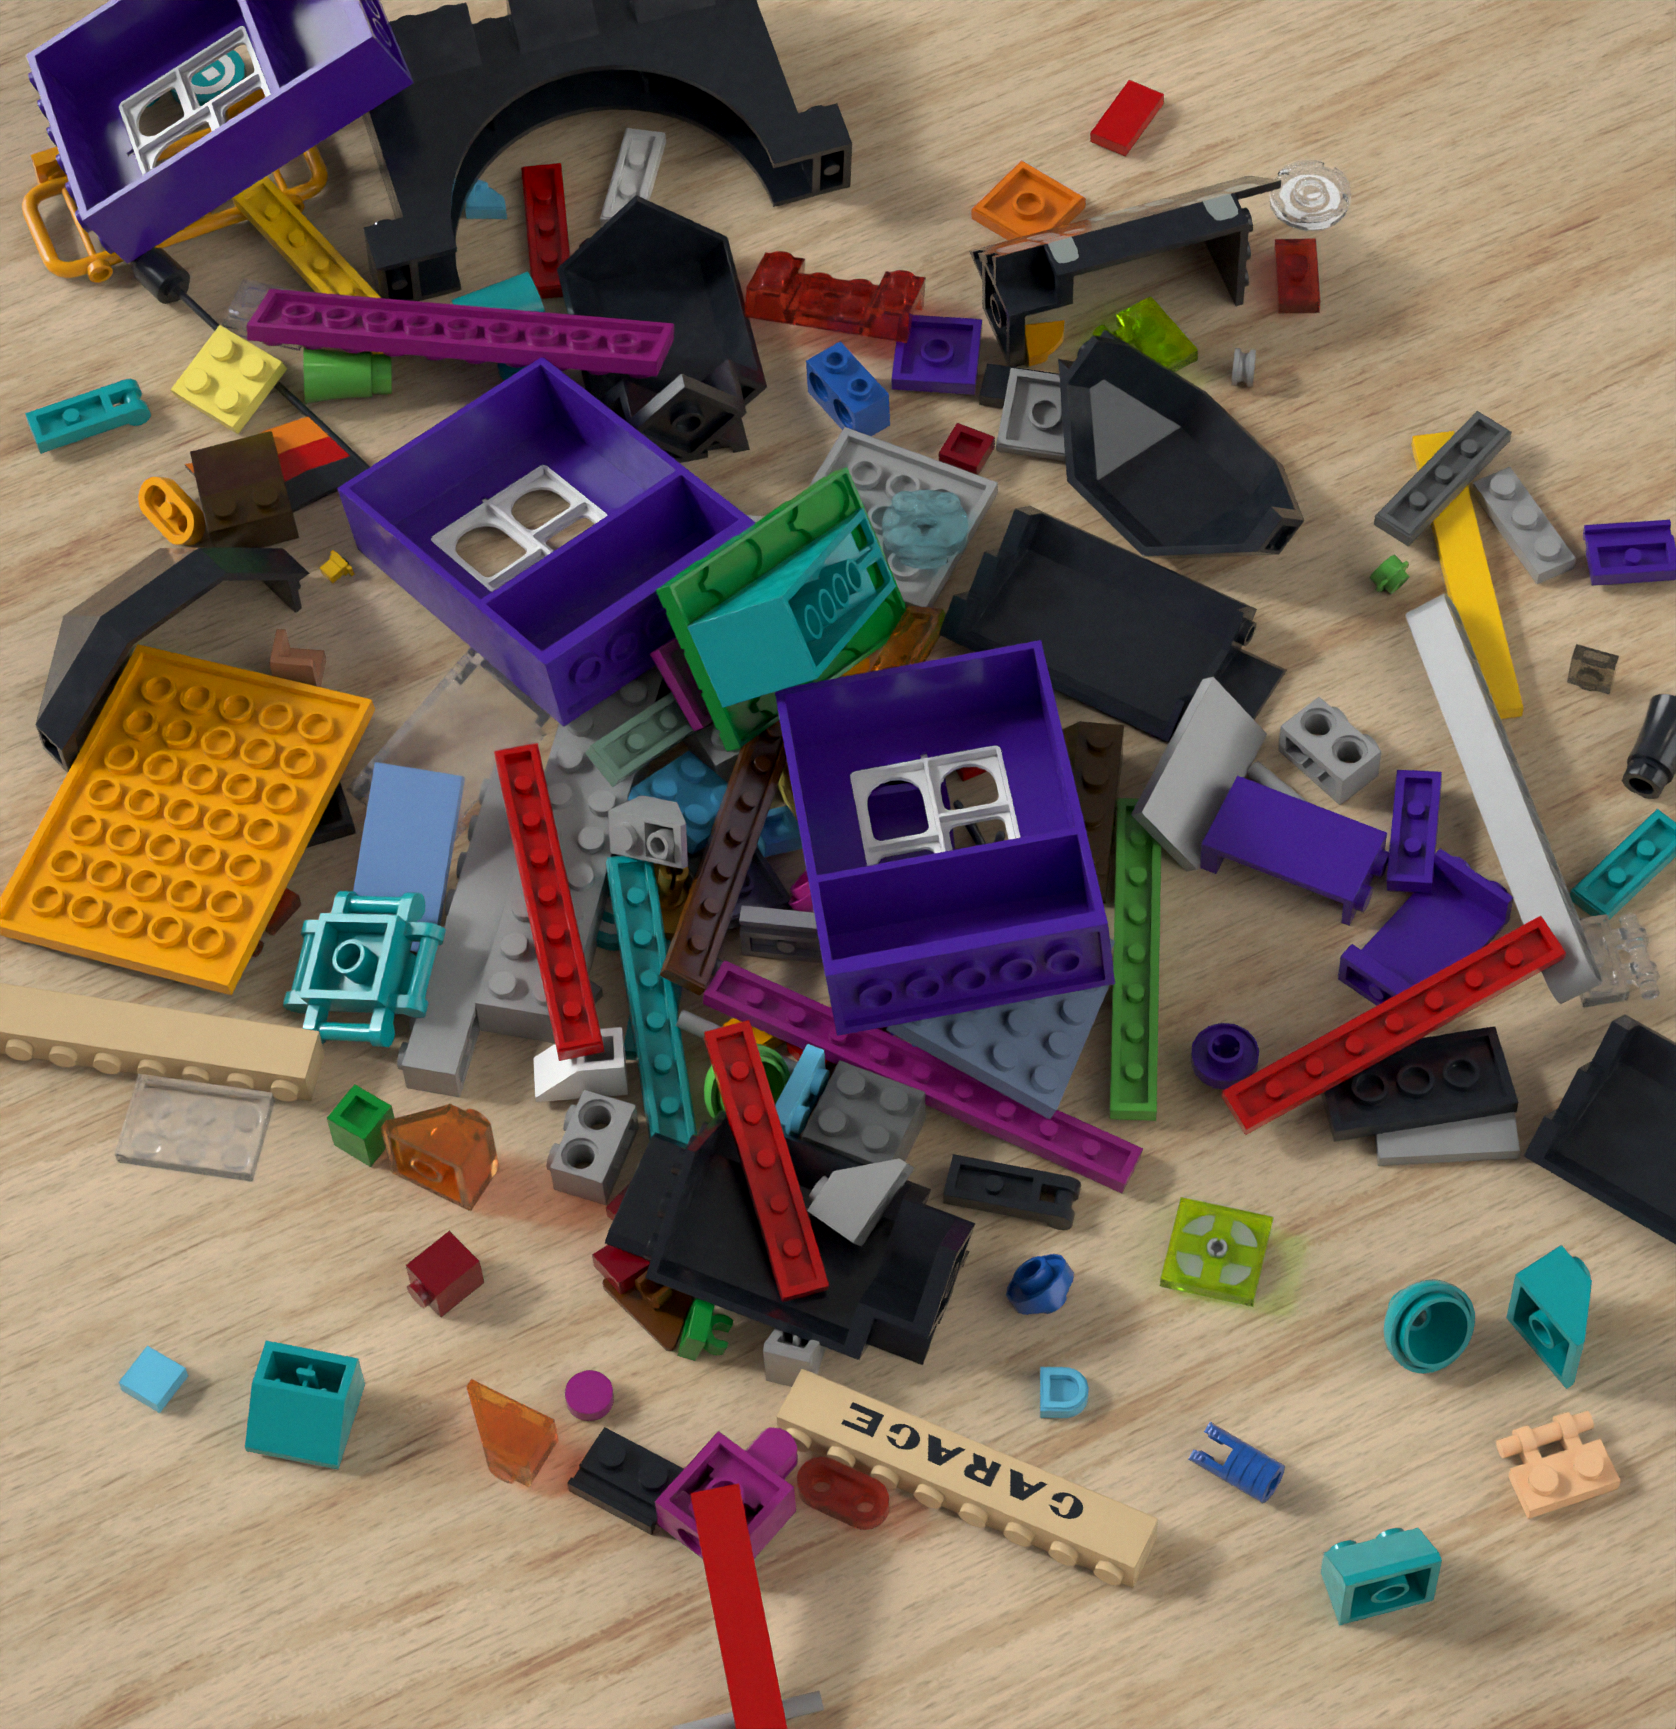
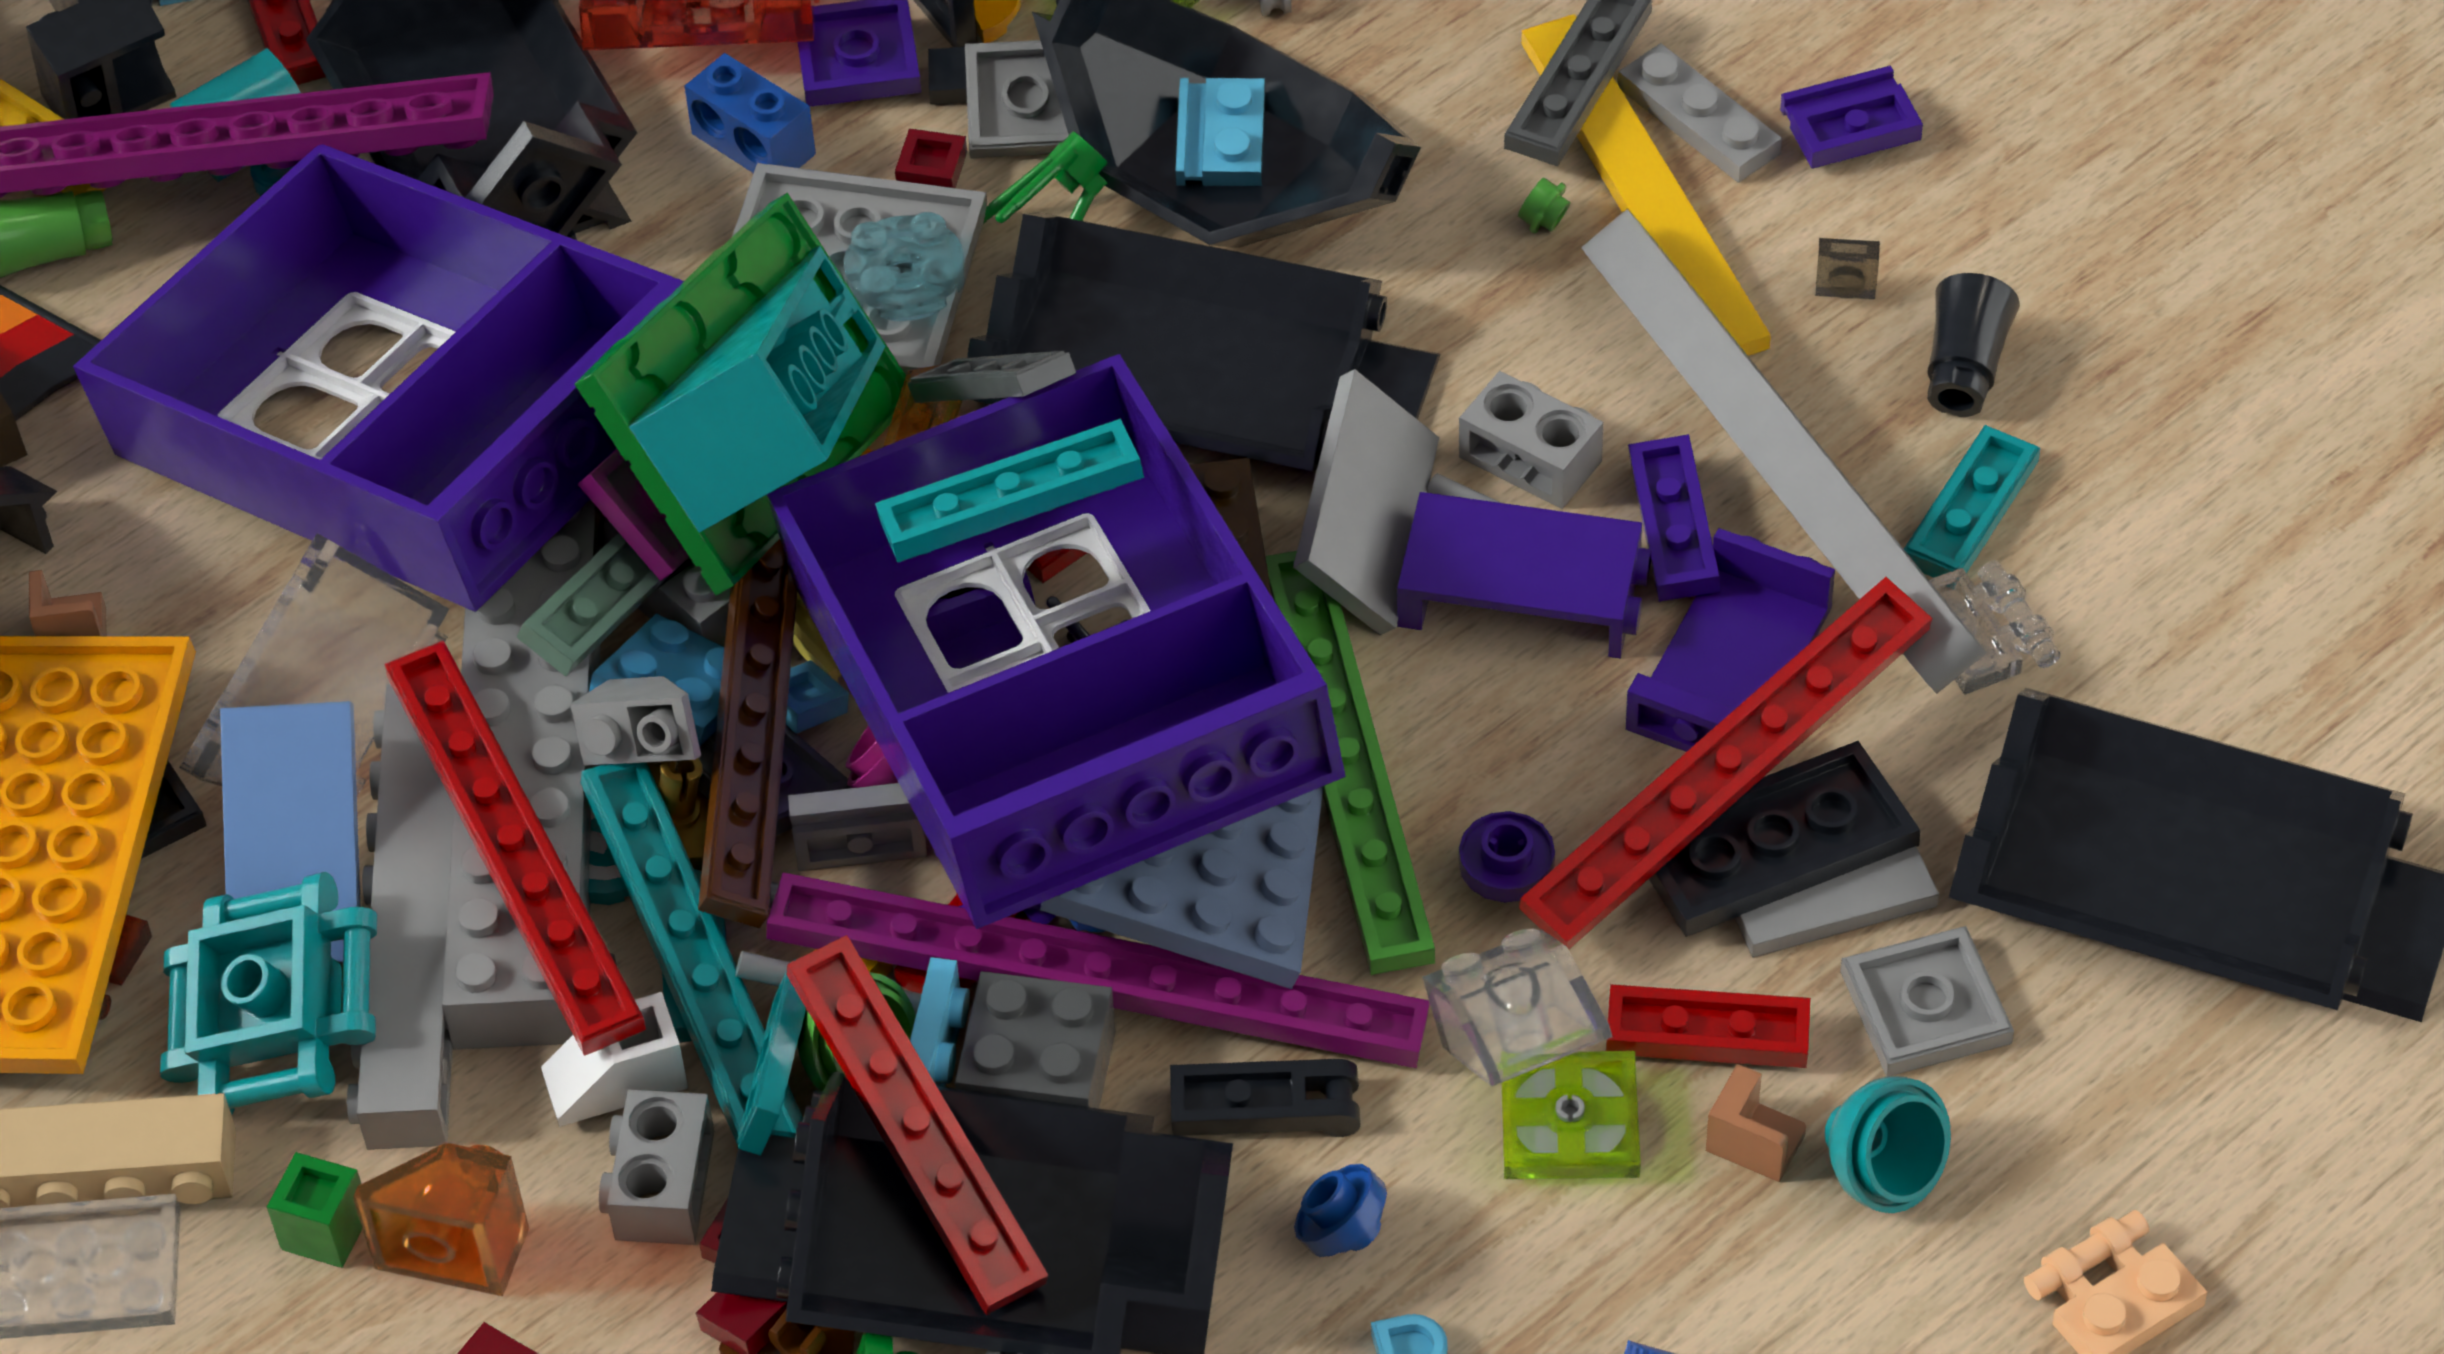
camera: 15 degrees left, 5 degrees down
(336, 567) = (90, 483): yellow piece -> none
(680, 1100) = (772, 1068): none -> teal tile
(858, 1197) = (1058, 1145): light grey slope -> none
(934, 729) = (1009, 490): none -> teal plate
(954, 633) = (991, 377): none -> dark grey tile
(1059, 476) = (1070, 164): none -> green plant
(1176, 470) = (1221, 131): none -> medium azure plate
(1197, 1168) = (1514, 1006): none -> clear slope
(1330, 1210) = (1709, 1026): none -> red plate
(1338, 1291) = (1749, 1131): none -> nougat panel
(1488, 1225) = (1926, 1001): none -> light grey tile
(1552, 1310) = (2055, 1088): teal slope -> none

